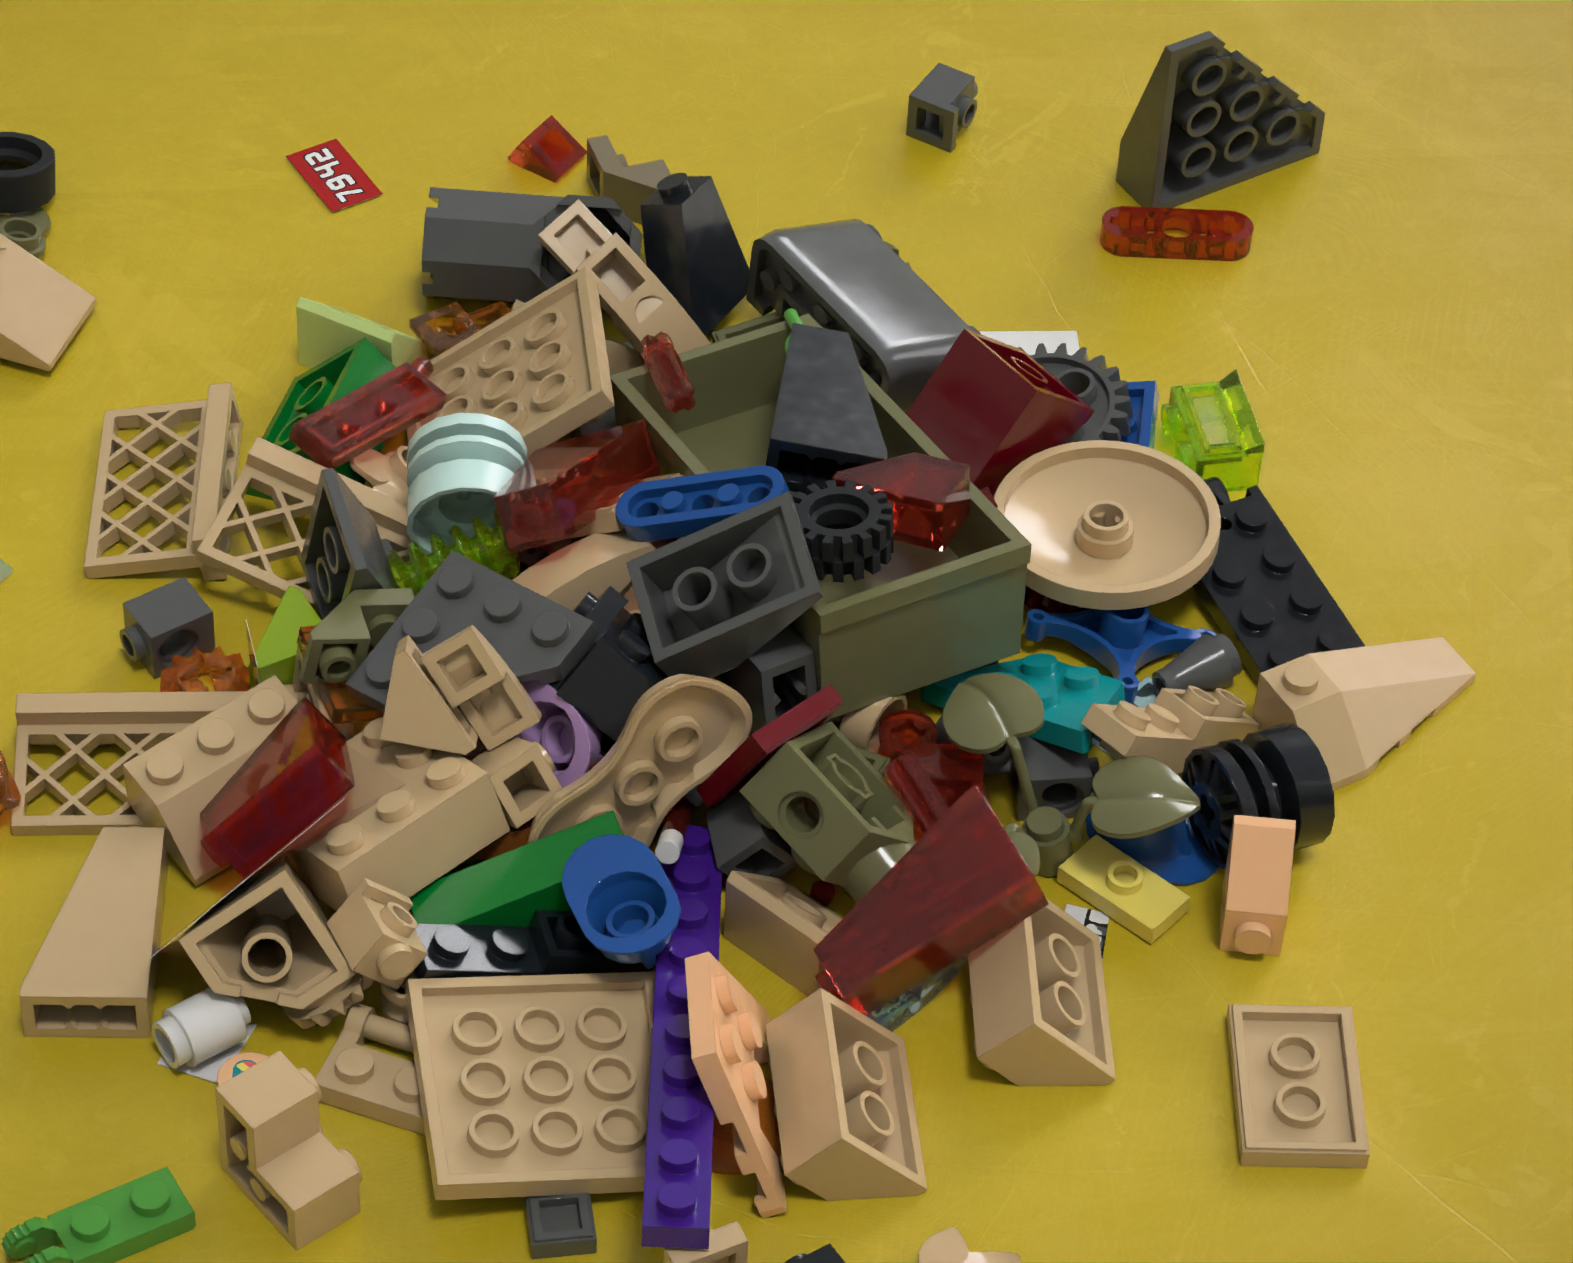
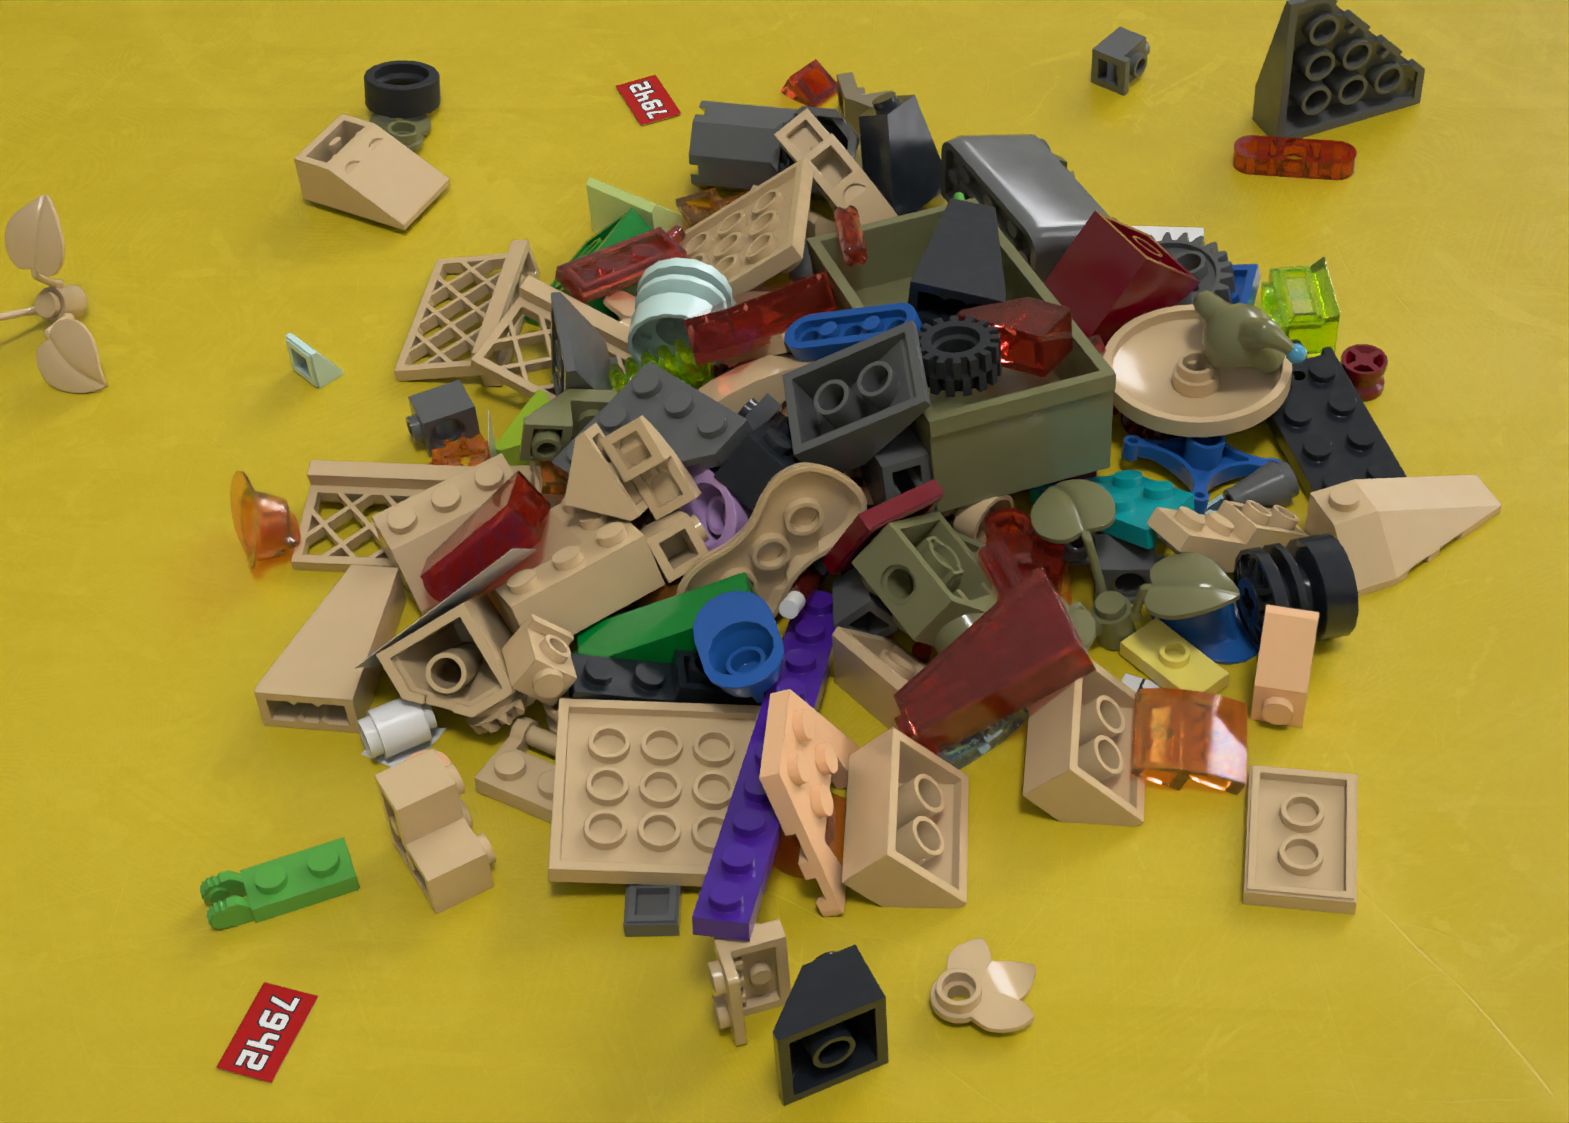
camera: 15 degrees right, 0 degrees up
(1156, 977) = (1189, 737): none -> clear orange slope
(1160, 482) = (1243, 336): none -> olive piece
(1300, 510) = (1365, 369): none -> dark red wheel

